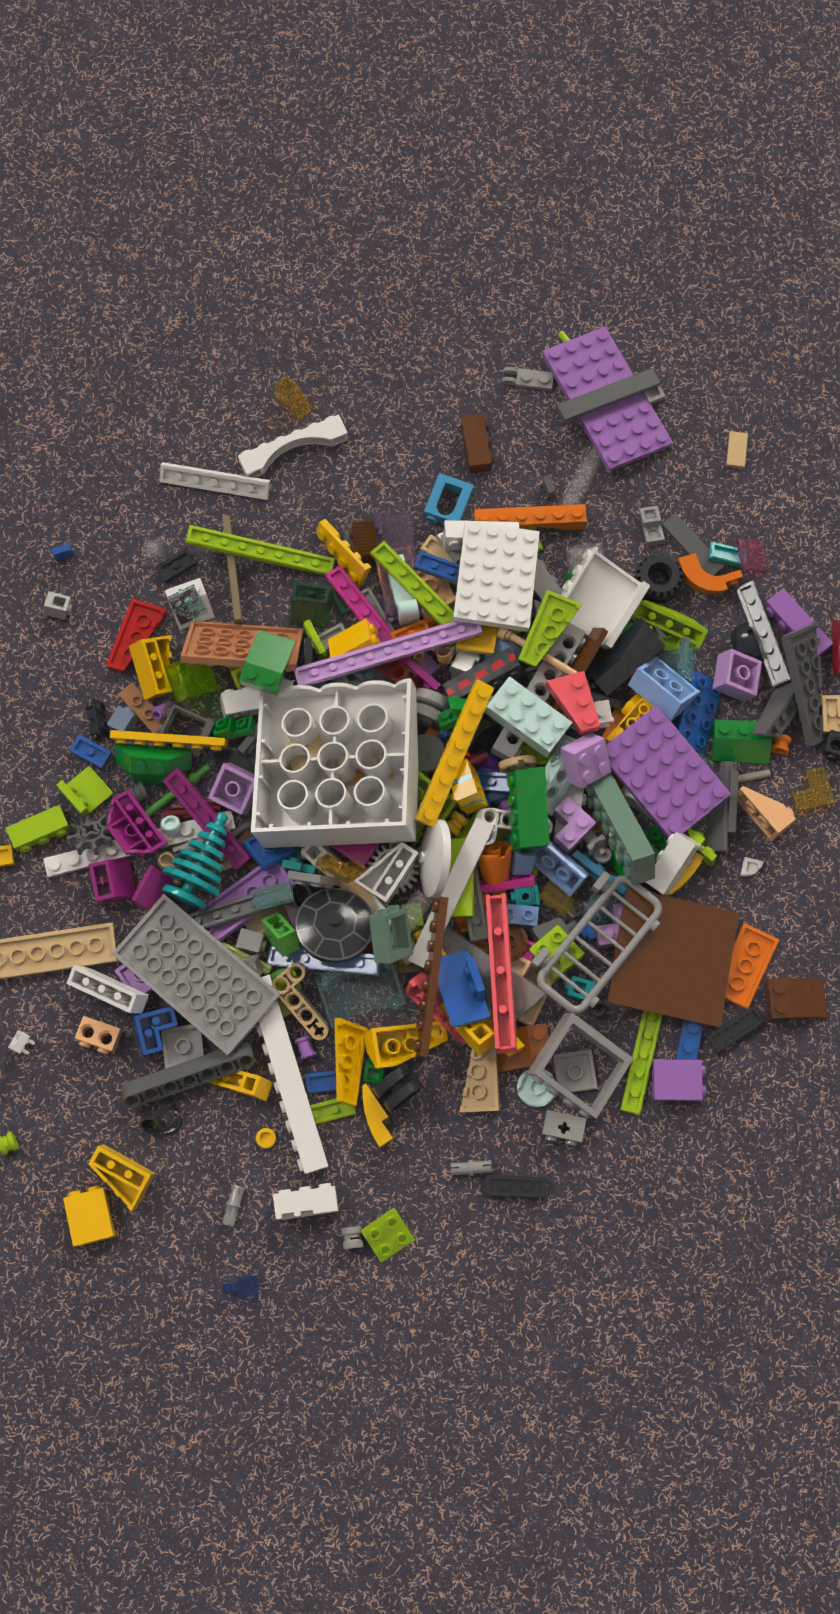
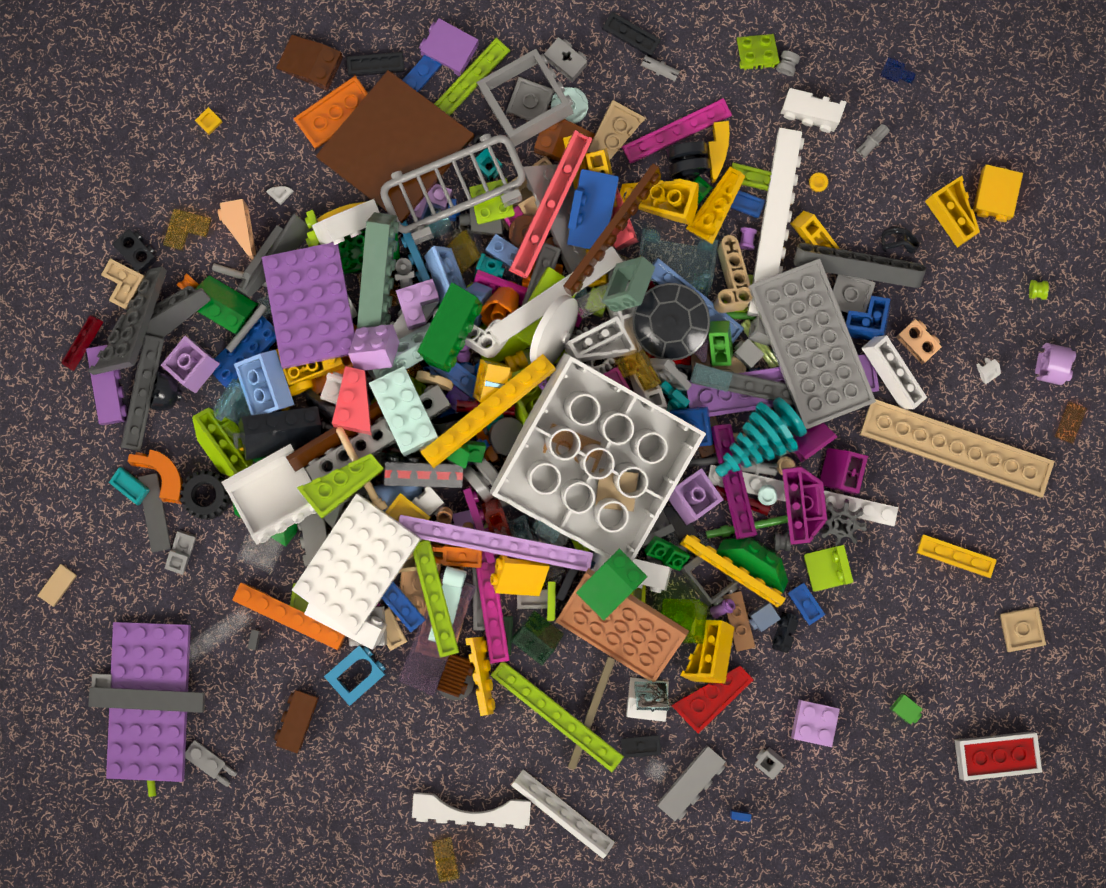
camera: 155 degrees left, 10 degrees up
(34, 656) = (815, 723): none -> lavender brick
(38, 829) = (886, 554): lime brick -> none
(118, 557) = (690, 783): none -> light grey brick
(423, 1116) = (676, 131): none -> dark pink tile
(708, 732) = (246, 328): none -> light grey bar
(752, 555) = (106, 473): clear pink piece -> none

